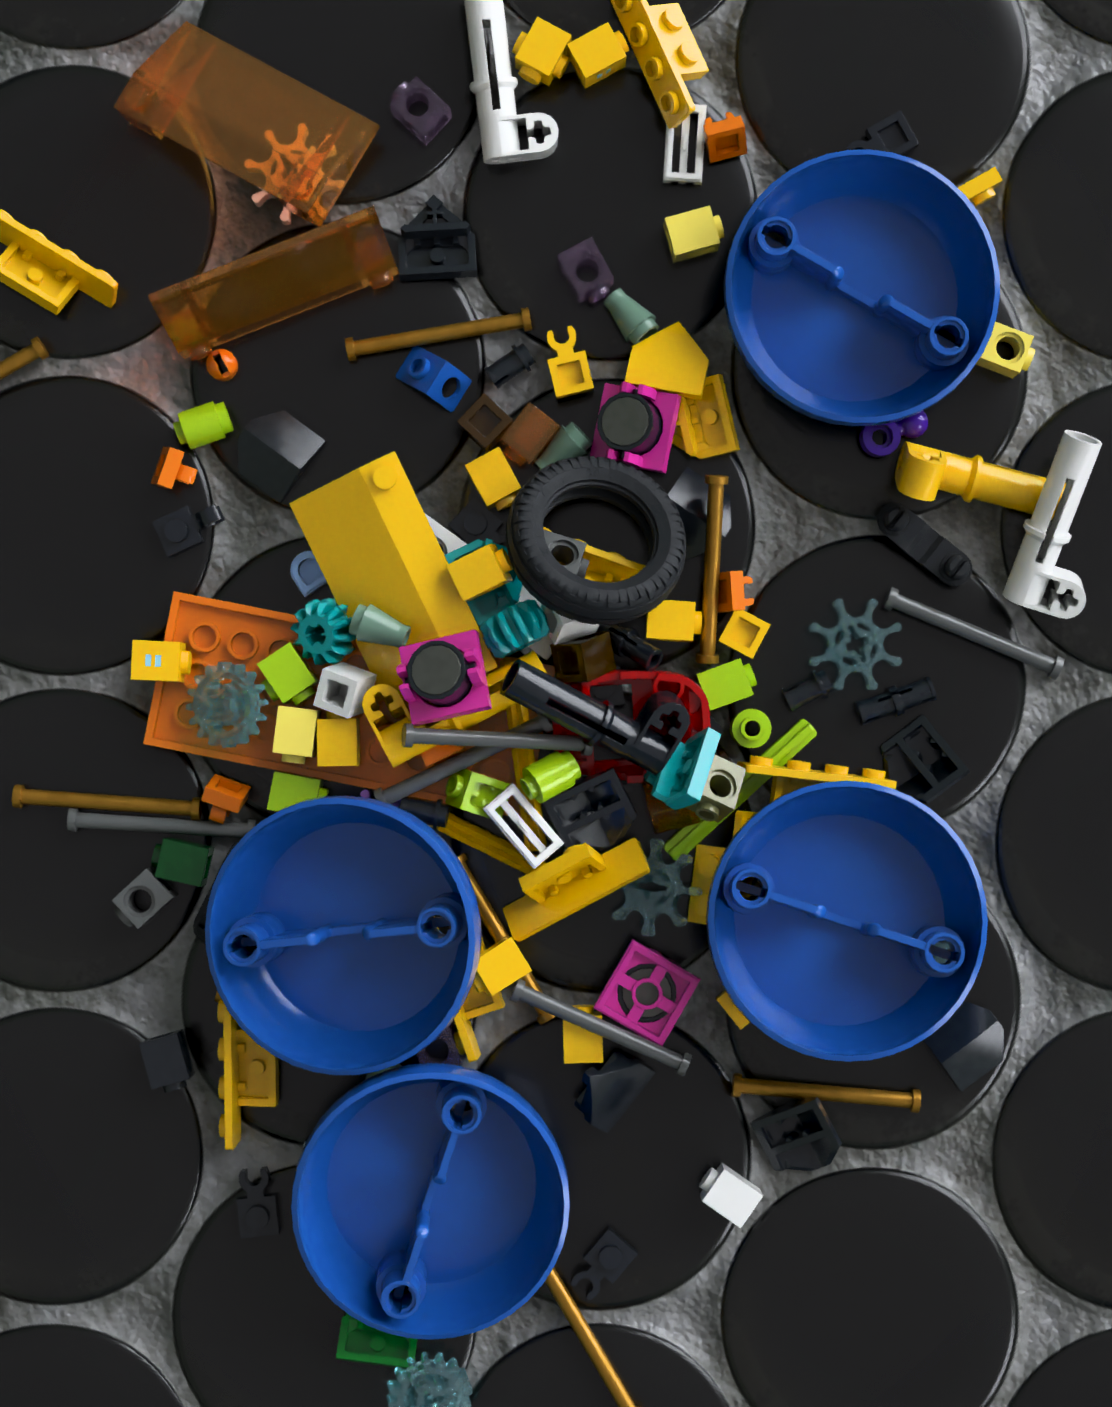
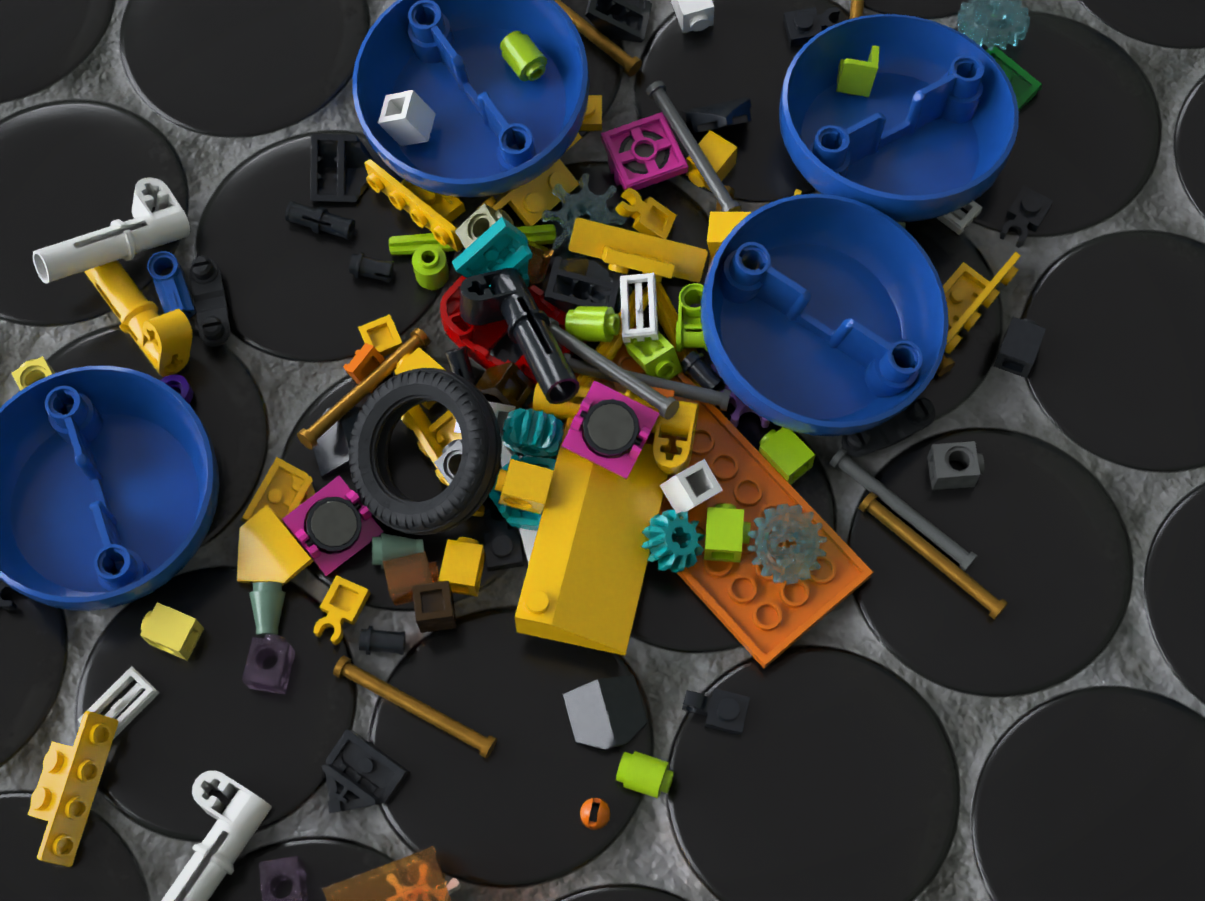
camera: 140 degrees left, 20 degrees down
(160, 661) = (814, 614): yellow brick -> none
(170, 469) = (696, 759): orange tile -> none
(182, 861) = (906, 470): dark green brick -> none
(225, 797) = (839, 492): orange tile -> none
(275, 283) = (418, 800): clear orange slope -> none
(296, 733) = (751, 488): light yellow brick -> none
(307, 573) = (652, 607): light blue tile -> none
(338, 741) = (728, 458): yellow brick -> none
(378, 627) = (631, 508): sand green cone -> none
(429, 373) = (446, 679): blue bracket -> none
(470, 850) = (688, 326): none -> lime piece
(508, 1228) = (858, 76): none -> lime panel
(542, 53) = (156, 855): yellow brick -> none
(592, 935) = (649, 215): none -> yellow plate
(598, 54) = (118, 820): yellow brick -> none
(725, 138) = (86, 682): orange tile -> none
(727, 683) = (420, 309): lime brick -> none
(828, 994) = (523, 56): none -> lime brick
(873, 637) = (320, 280): clear light blue gear -> none
(882, 844) = (406, 118): none -> white brick
(965, 528) = (172, 287): none -> blue piece
(974, 633) = (262, 283): dark grey bar -> none

